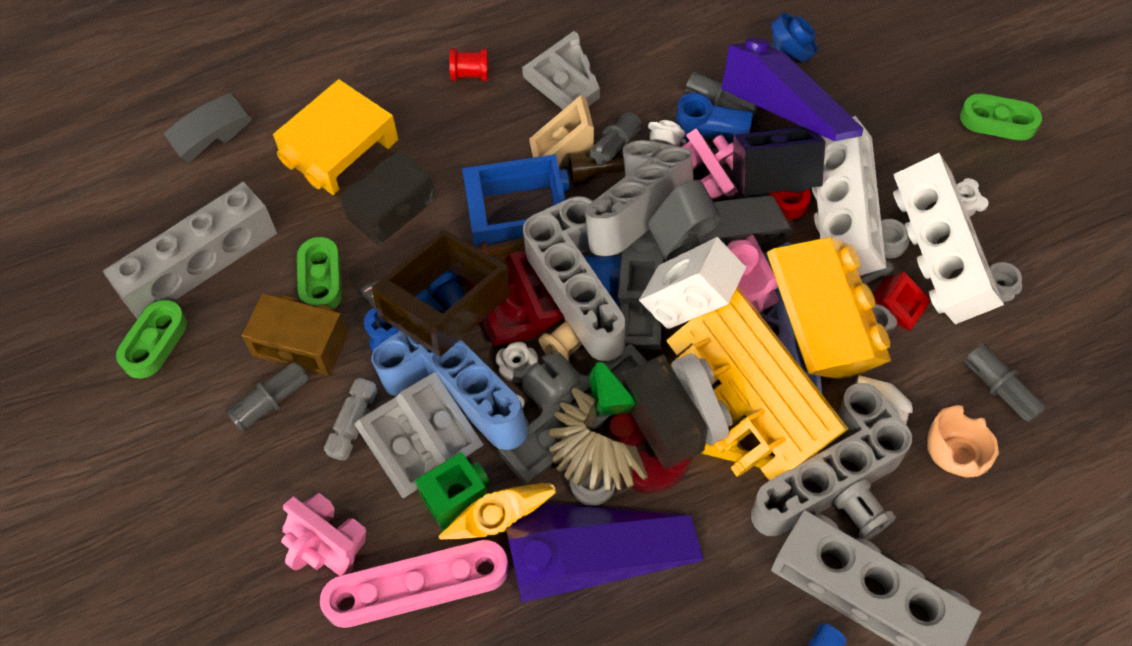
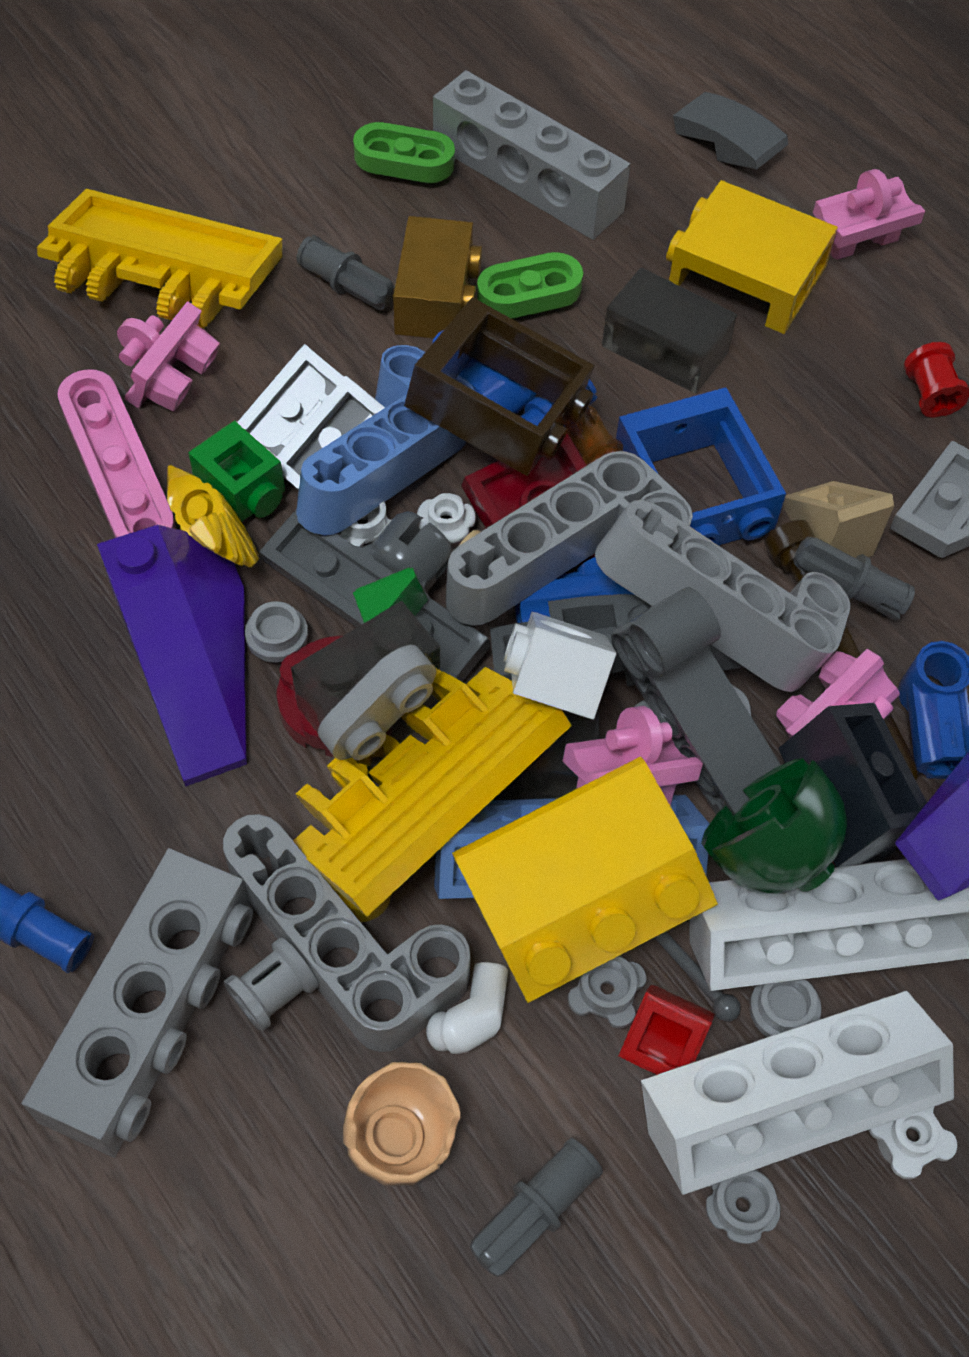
camera: 75 degrees right, 0 degrees up
(195, 529) = (126, 239): none -> yellow hinge
(322, 62) = (872, 211): none -> bright pink hips
(355, 407) = (340, 357): light grey axle -> none
(588, 451) = (300, 609): dark tan hair -> none
(667, 133) = (890, 646): white plate -> none
(808, 199) = (782, 833): none -> dark green cylinder

